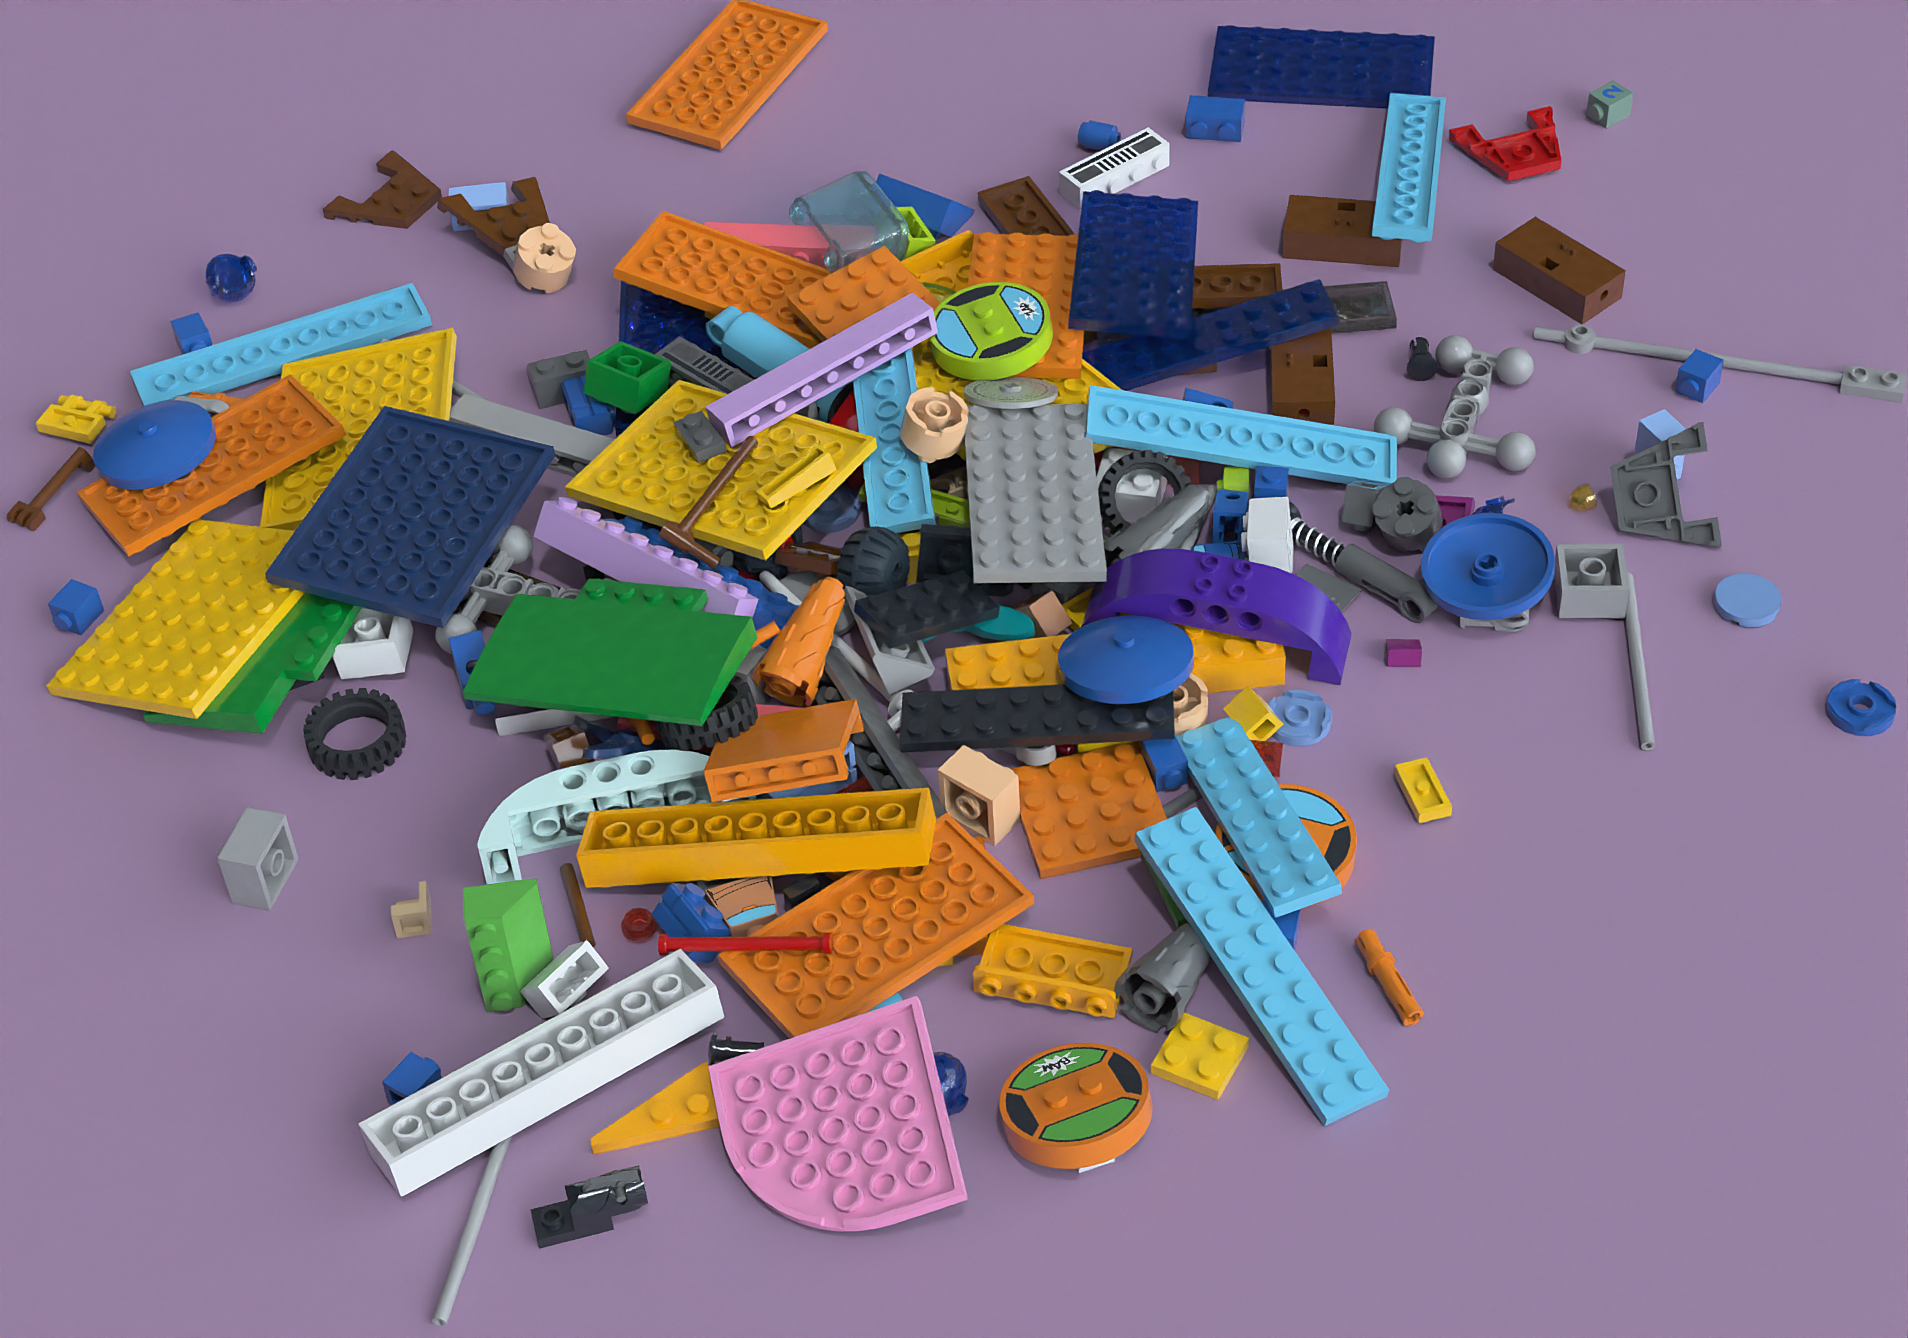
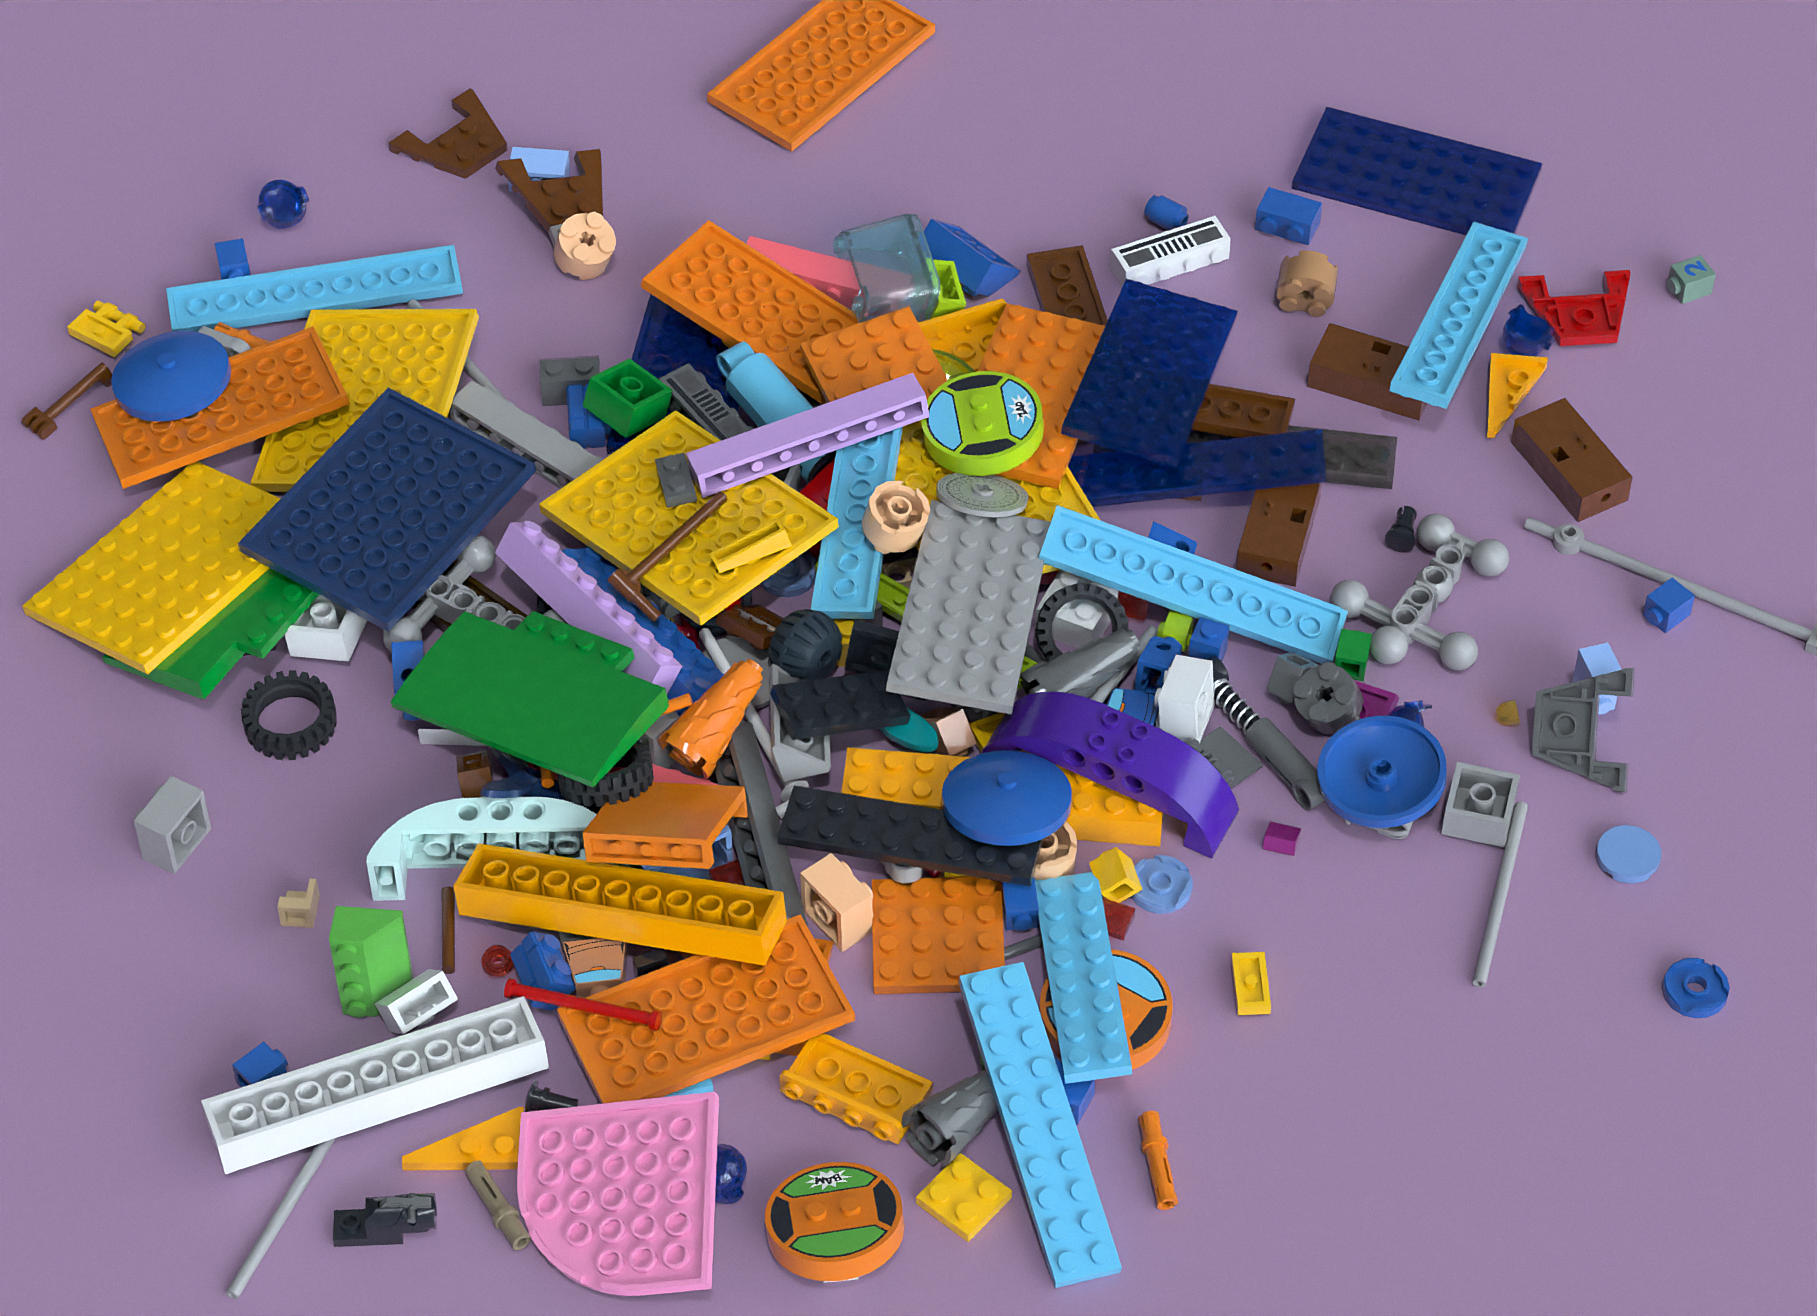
camera: 10 degrees right, 5 degrees up
(75, 607) = (64, 531): blue brick -> none
(718, 1175) = (504, 1216): none -> dark tan pin
(1255, 167) = (1307, 283): none -> medium nougat brick
(1415, 466) = (1353, 652): none -> green brick
(1474, 219) = (1509, 383): none -> light orange wing
(1476, 175) = (1526, 333): none -> clear blue cap

